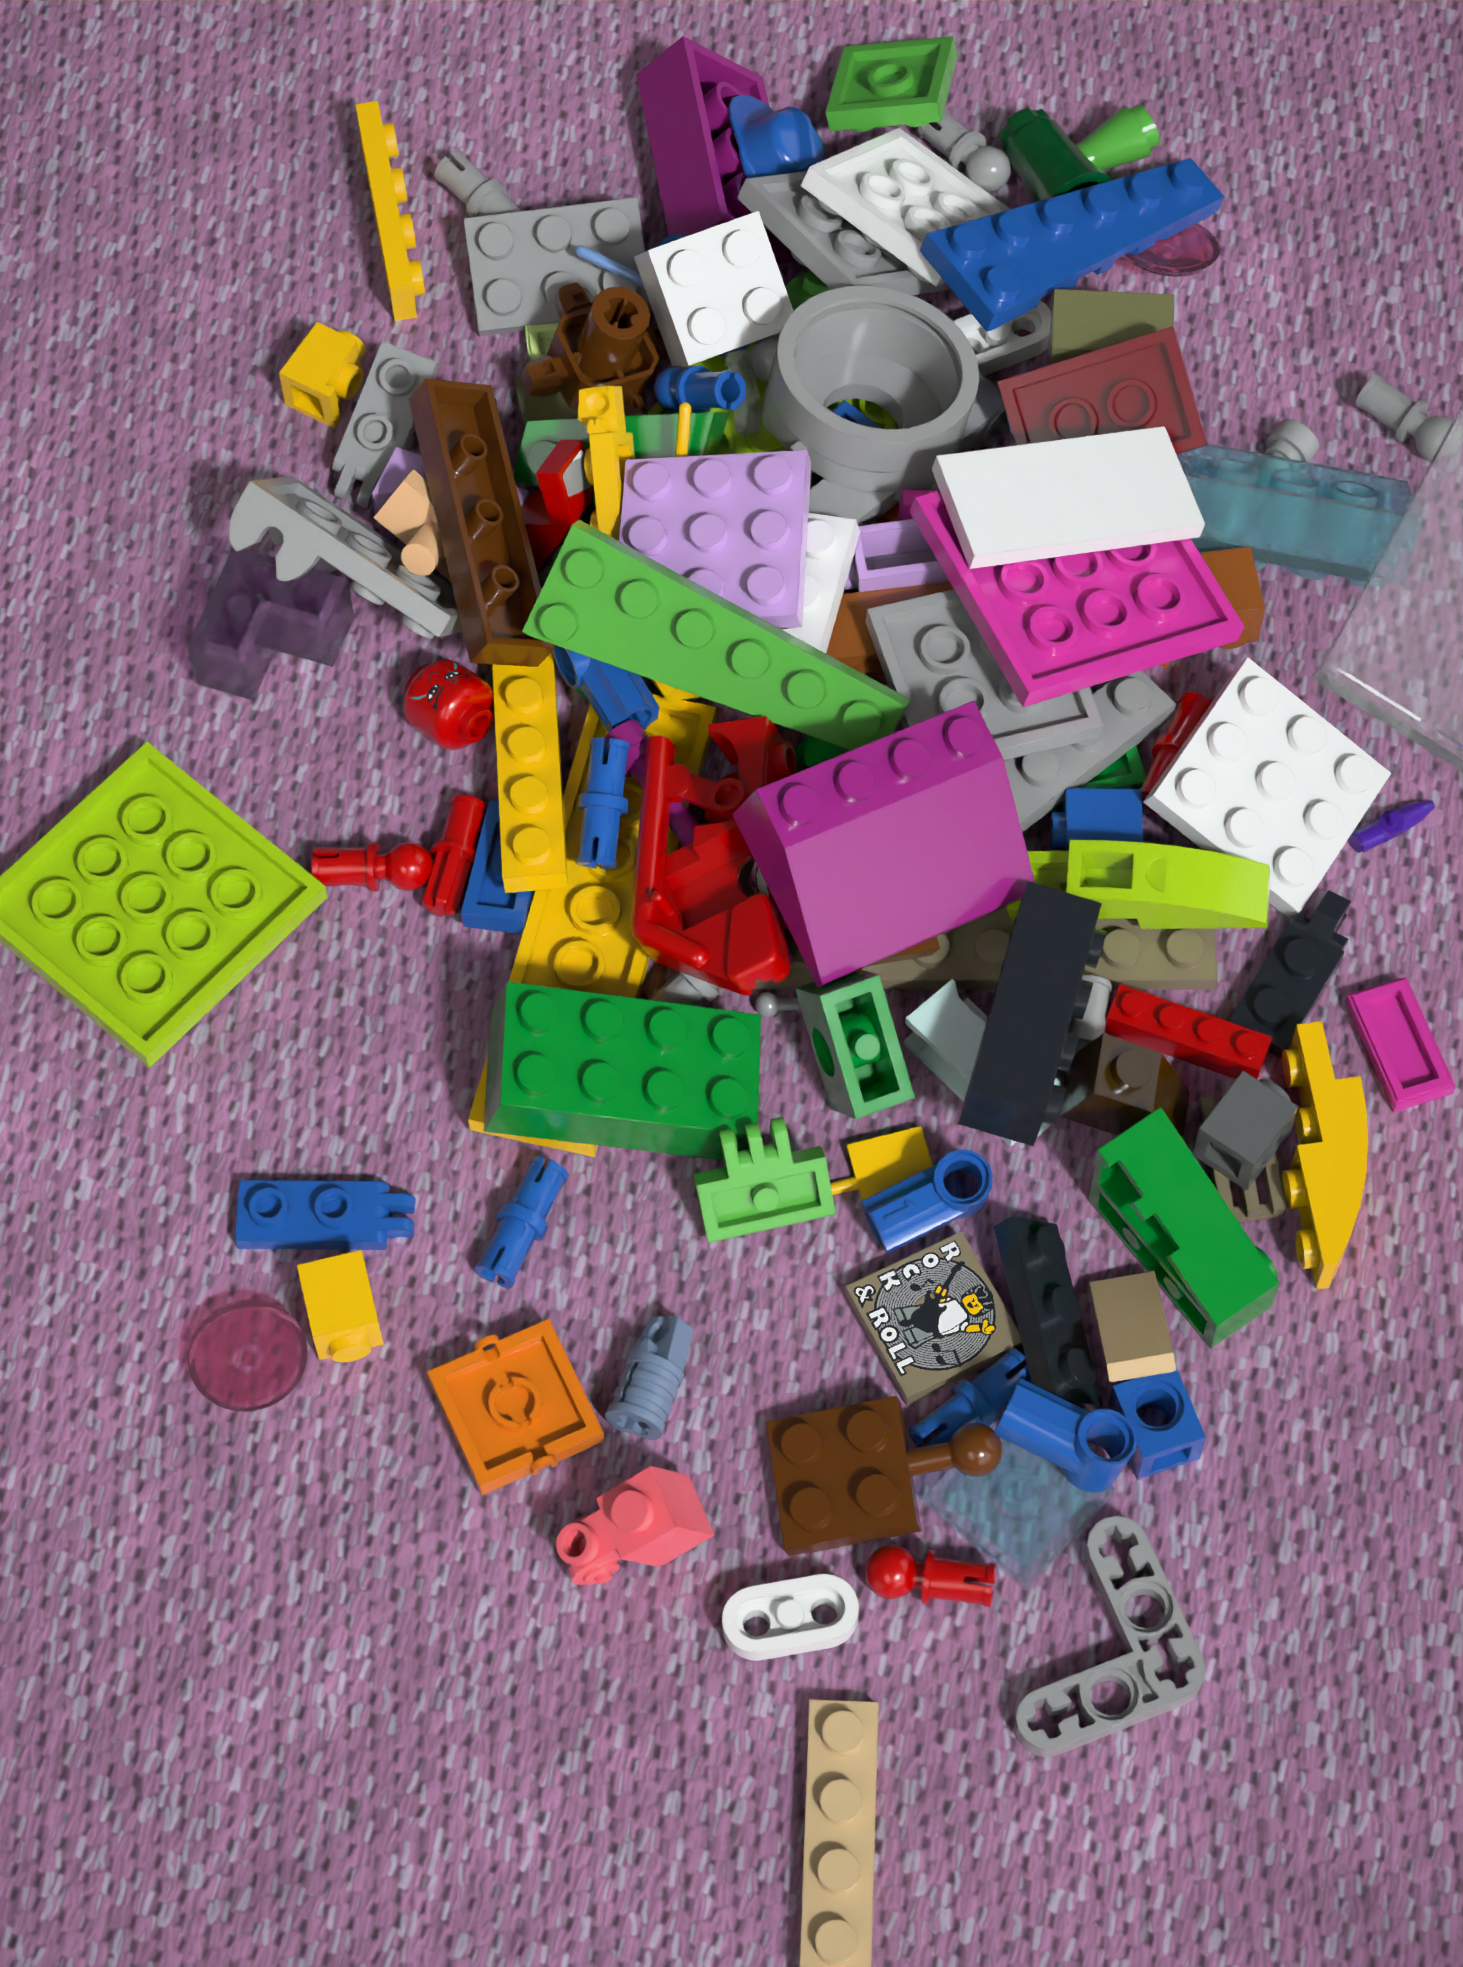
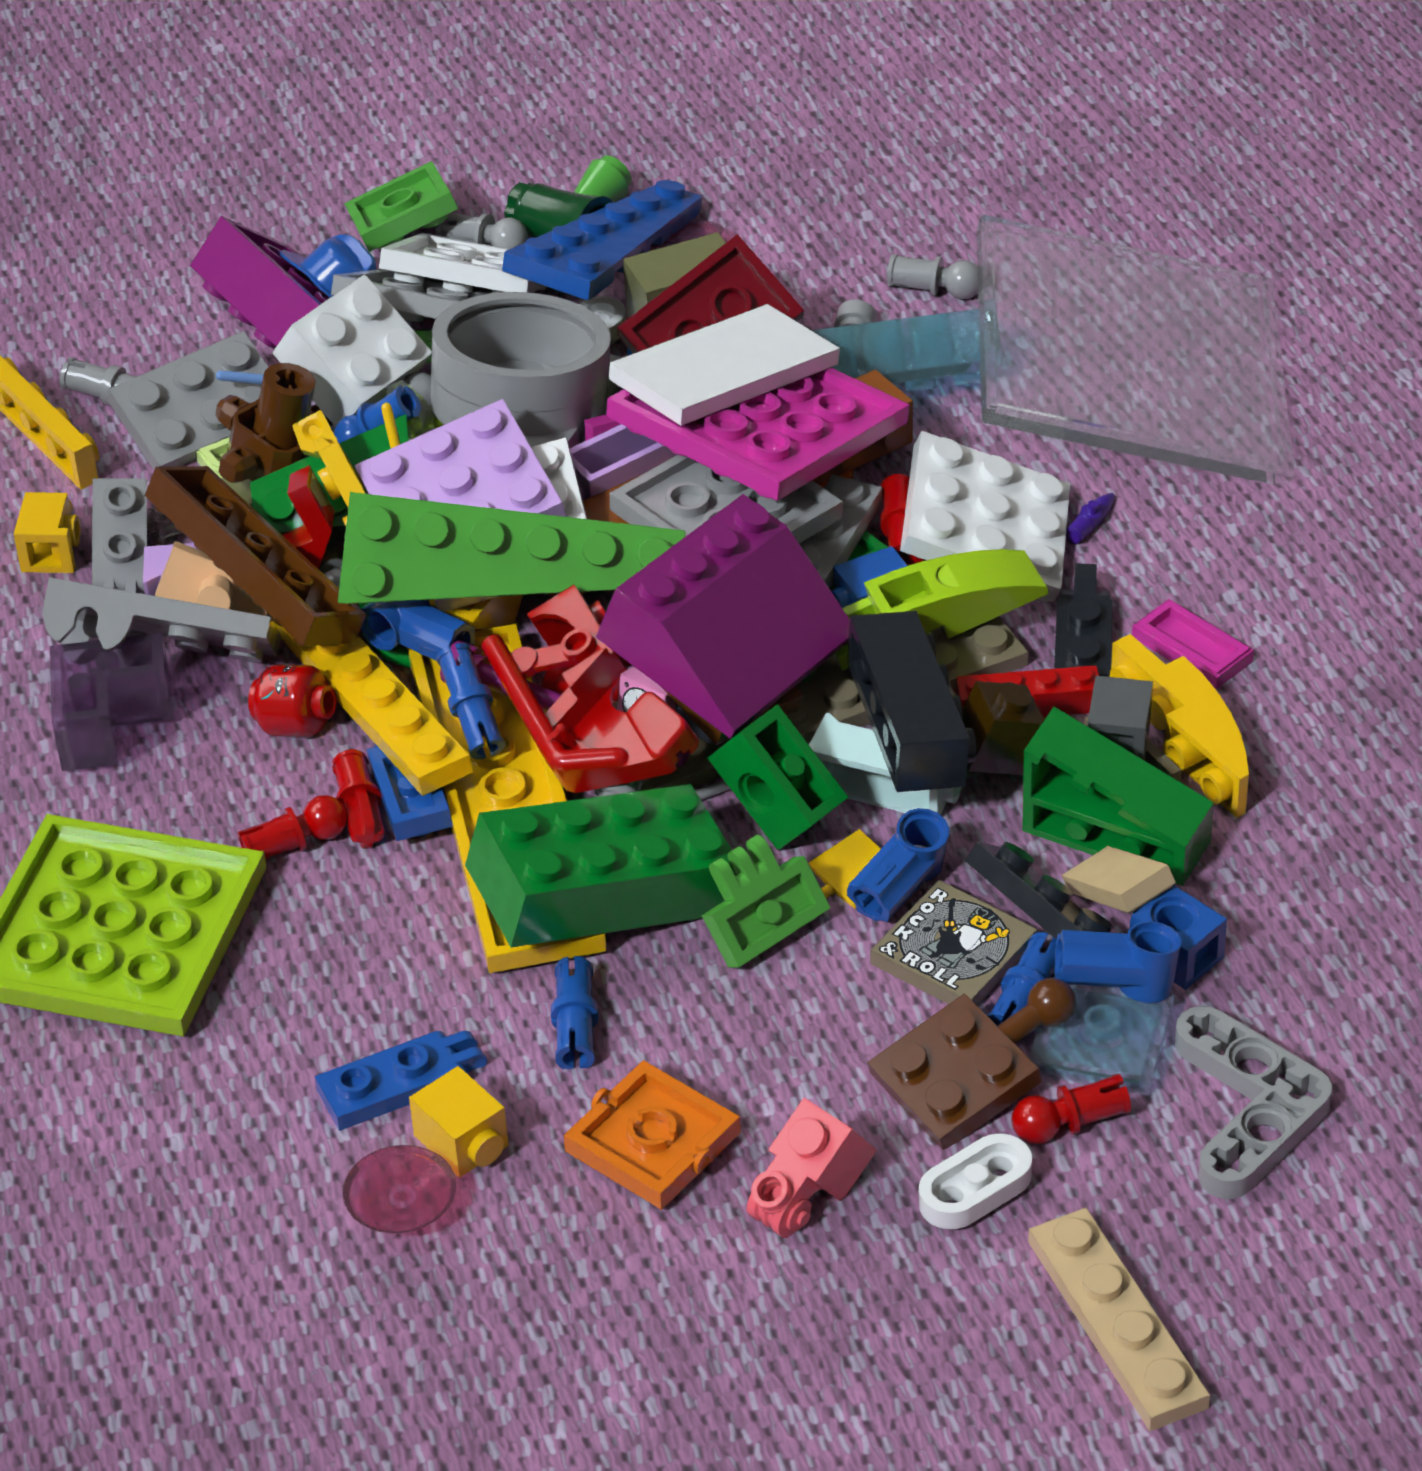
camera: 25 degrees left, 20 degrees down
(651, 1378) = (753, 1073): sand blue hinge -> none

